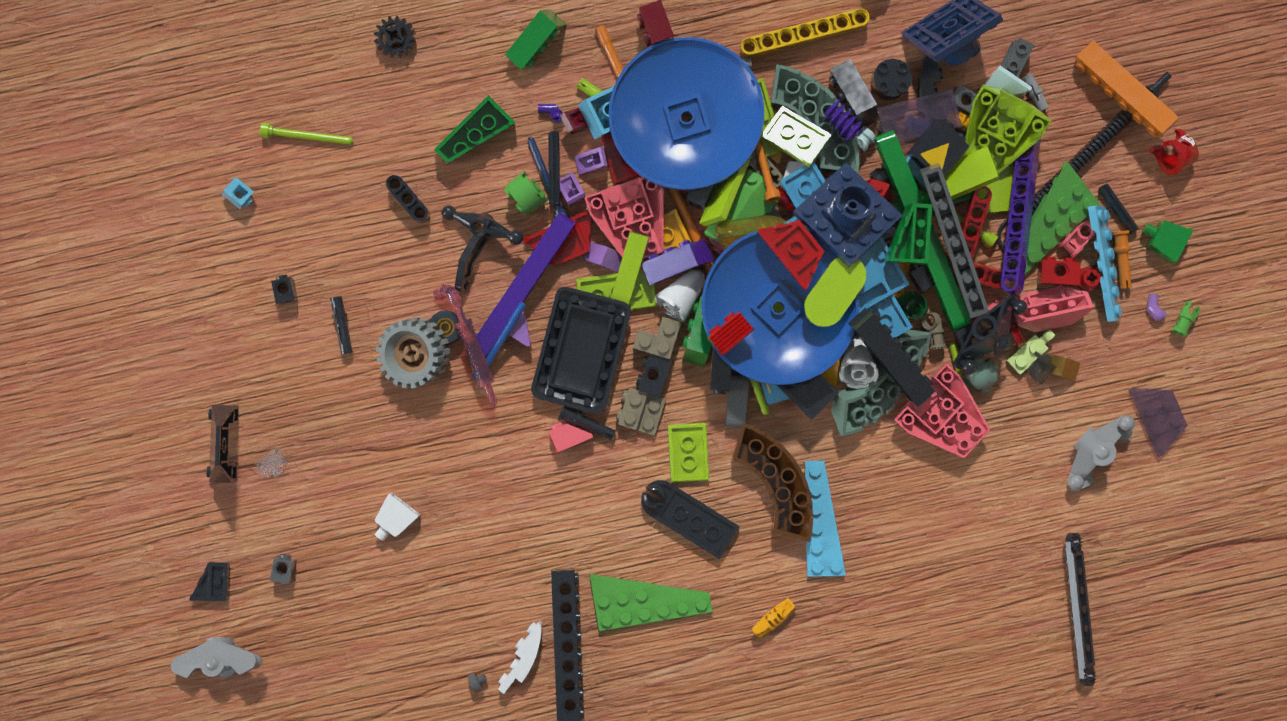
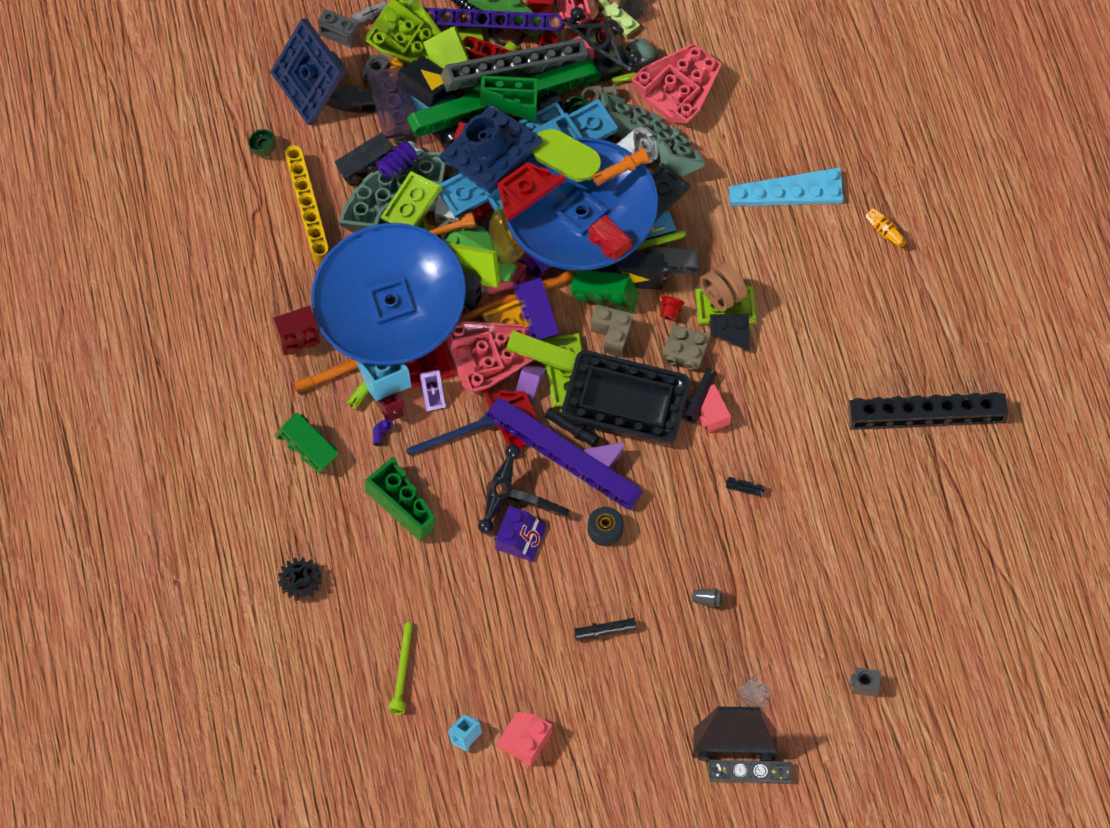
camera: 90 degrees left, 25 degrees down
(199, 457) = (750, 771): none -> dark grey tile
(213, 583) = (885, 754): black wing -> none
(216, 658) = (964, 740): light grey piece -> none
(233, 248) = (525, 737): none -> coral slope
(290, 296) = (572, 677): black brick -> none
(372, 423) = (708, 597): none -> dark grey cone
(394, 517) = (804, 573): white torso -> none
(399, 358) = (626, 528): light grey wheel -> none
(401, 192) = (474, 555): black beam -> none
(438, 246) = (520, 534): none -> dark purple slope
(470, 340) = (615, 495): clear pink piece -> none
(476, 682) = (970, 494): dark grey tile -> none
(489, 464) = (745, 486): none -> black axle
(504, 334) = (651, 492): blue piece -> none
(526, 193) = (465, 448): bright green brick -> none
(527, 651) = (935, 445): white slope -> none
(547, 304) = (579, 431): none -> black pin
(554, 168) = (439, 425): black axle -> none
(571, 190) = (462, 410): medium lavender slope -> none
(636, 602) = (879, 352): bright green wing -> none
(653, 386) = (643, 325): black brick -> none
(658, 457) = (731, 329): none -> black wing
(681, 295) = (571, 309): white cone -> none
(682, 397) = (670, 307): none -> red piece
(689, 517) = (790, 303): black plate -> none
(696, 449) = (723, 286): none -> nougat wheel
(782, 478) = (750, 220): reddish brown brick -> none
(821, 355) = (628, 163): none -> orange pin
(891, 79) = (354, 128): black brick -> none
(891, 356) = (627, 115): black brick -> none
(1008, 82) = (357, 35): light aqua slope -> none

